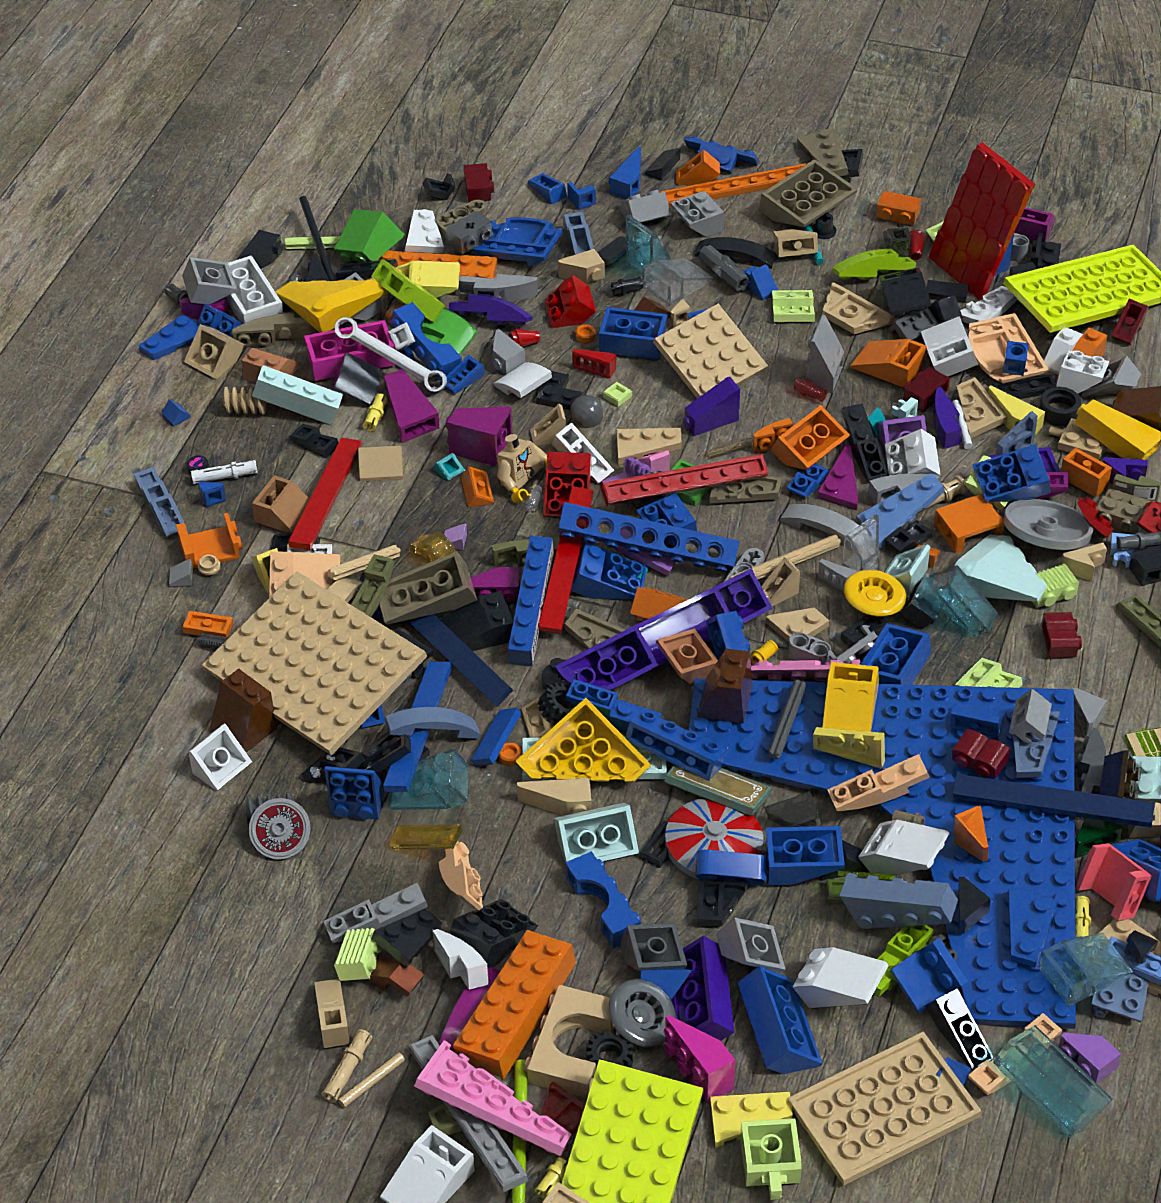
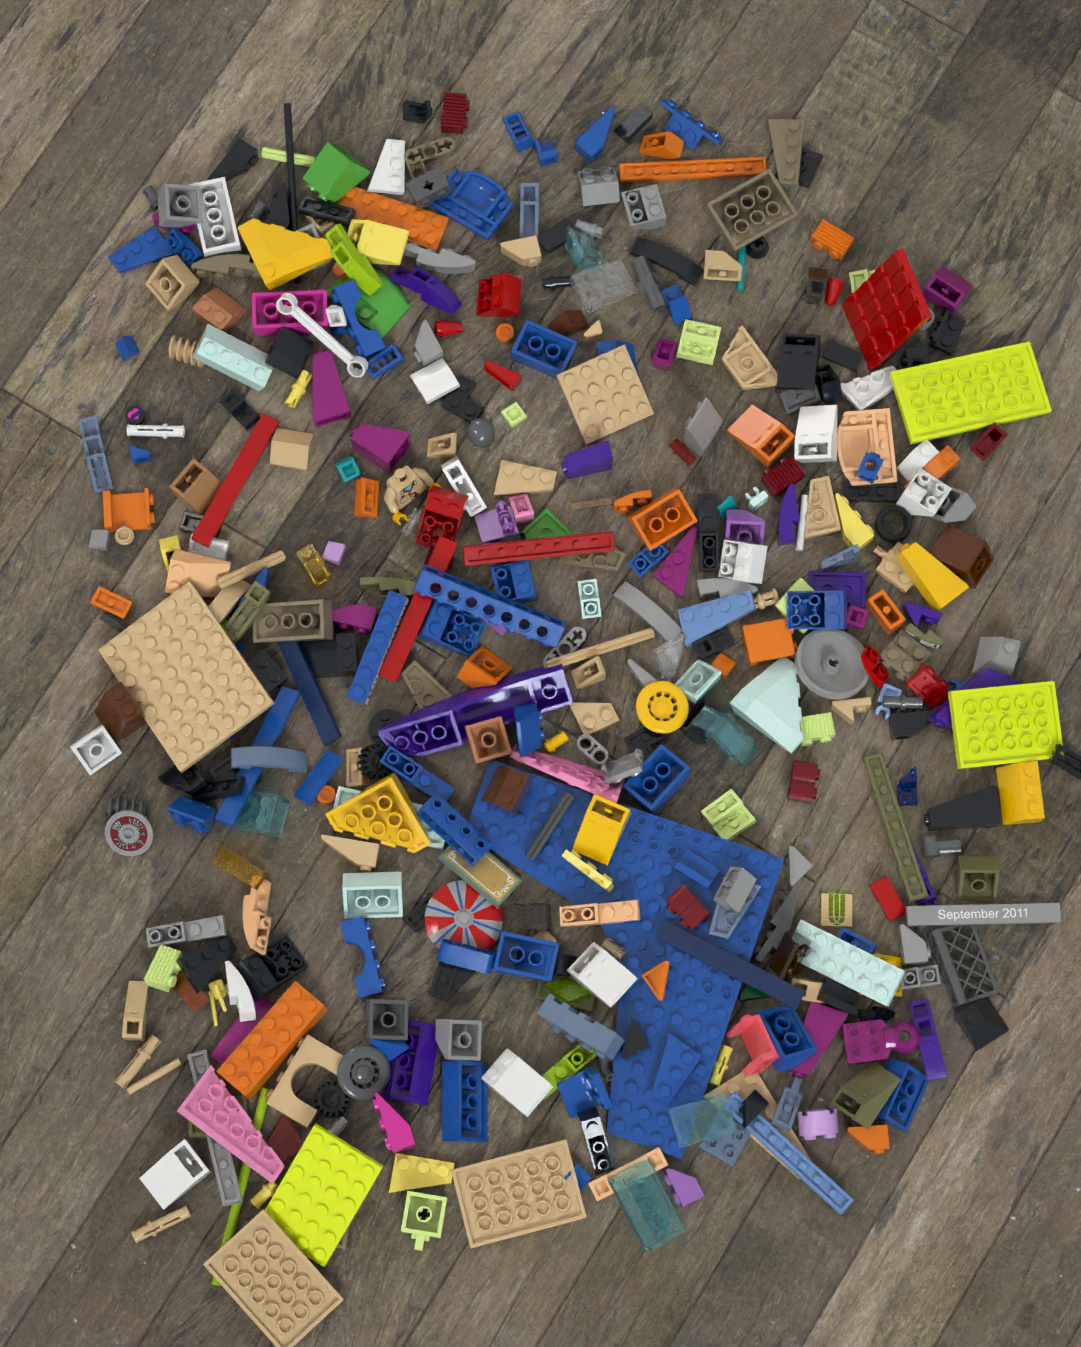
camera: 10 degrees right, 30 degrees up
(432, 971) = (217, 990): none -> light yellow plant
(754, 525) = (589, 598): none -> light aqua slope
(761, 321) = (664, 354): none -> magenta slope
(868, 263) = (784, 309): lime slope -> none

